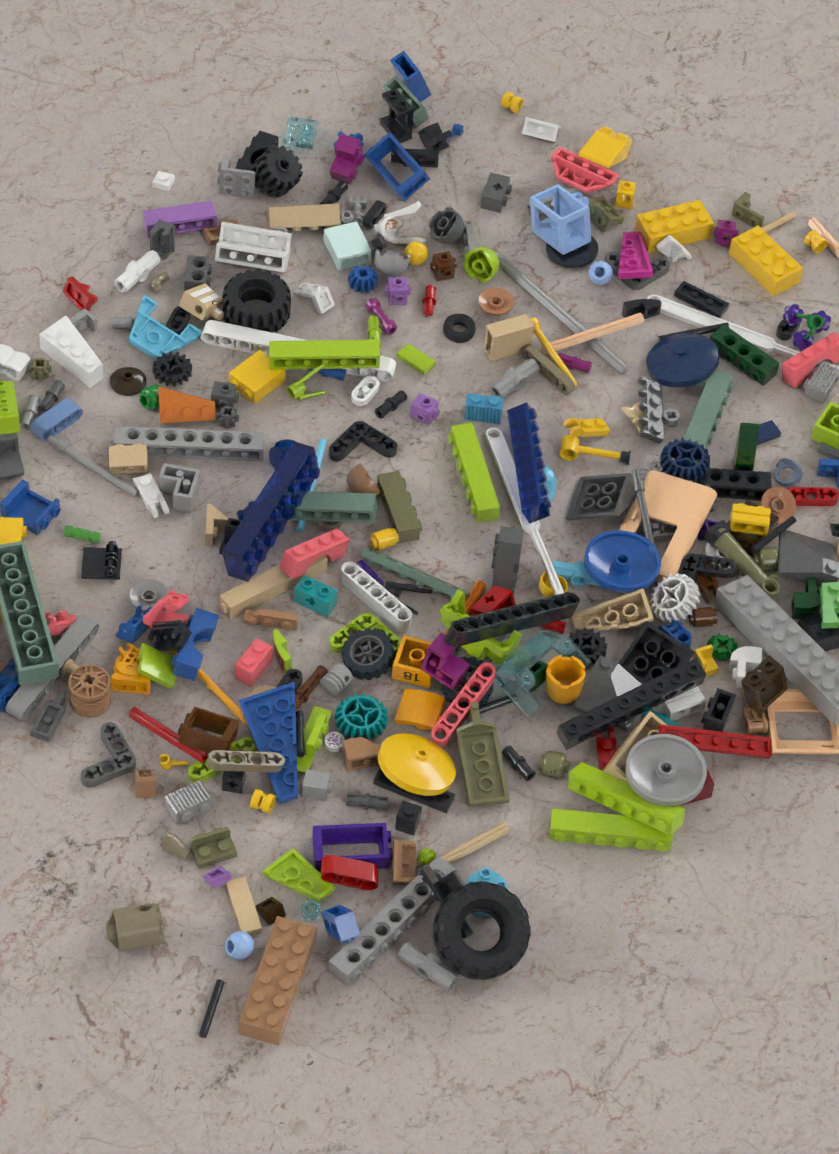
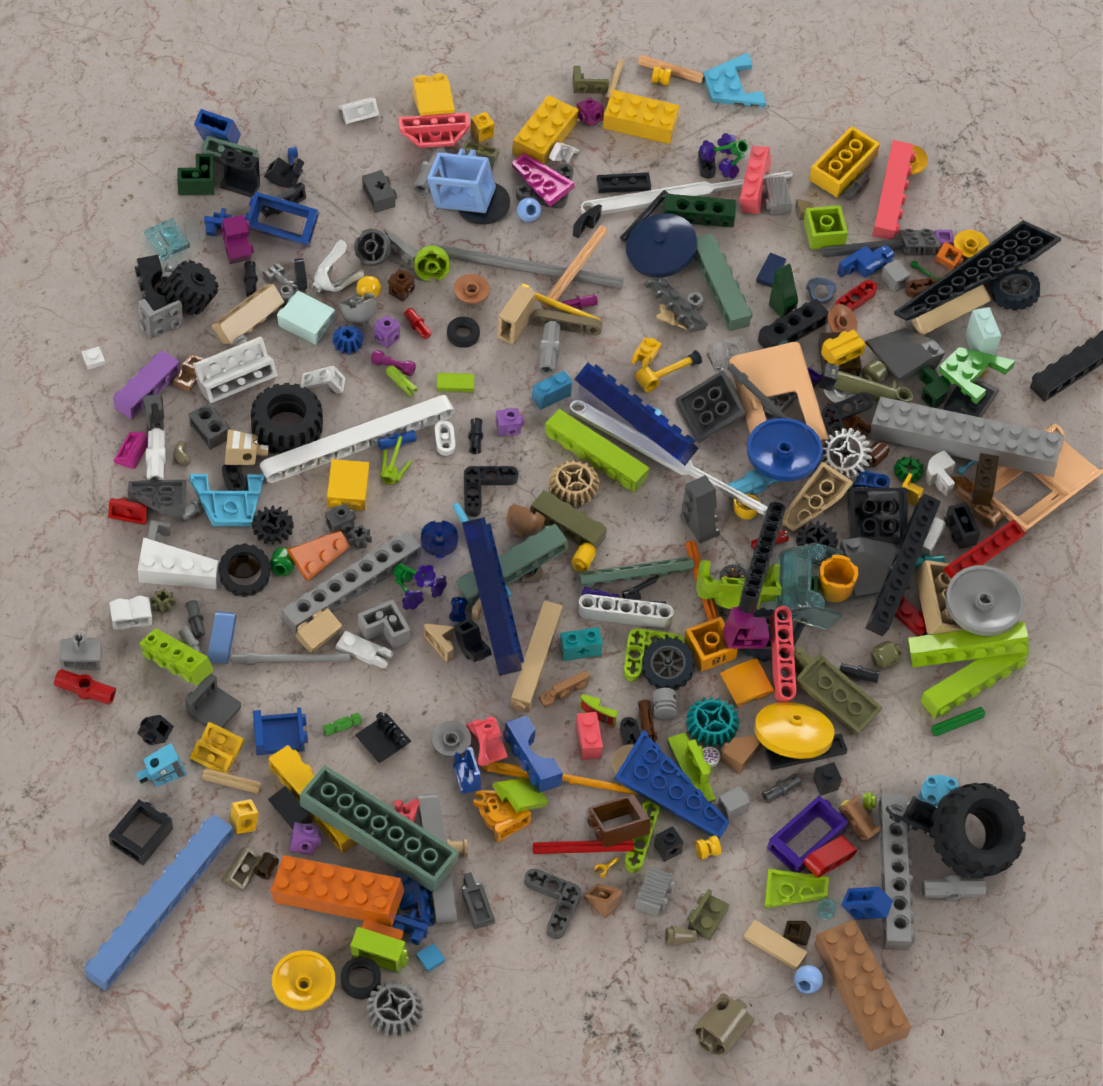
camera: 40 degrees left, 5 degrees up
(89, 691) = (490, 855): medium nougat wheel -> none
(111, 298) = (161, 495): none -> dark grey plate
(118, 367) = (249, 550): none -> black tyre
(120, 260) = (132, 449): none -> dark pink slope
(169, 635) = (512, 762): black hinge -> none
(211, 1008) = (833, 1047): black bar -> none
(217, 877) = (735, 936): medium lavender tile -> none
(235, 466) = (424, 577): none -> dark purple plant
(268, 761) = (671, 821): dark tan beam -> none
(300, 733) = (694, 780): black bar -> none
(302, 556) = (551, 608): coral arch -> none
(334, 353) = (386, 431): lime brick -> none
(364, 105) = (197, 179): none -> dark green brick
(378, 243) = (334, 299): black beam -> none
(432, 483) = (571, 476): none -> tan gear
(476, 843) = (890, 762): tan axle -> none
(493, 600) = (721, 553): red brick -> none
(512, 102) = (318, 100): yellow wheel -> none
(564, 852) = (958, 721): none -> green axle
(685, 455) = (739, 331): dark blue gear -> none
(773, 534) = (868, 348): black bar -> none

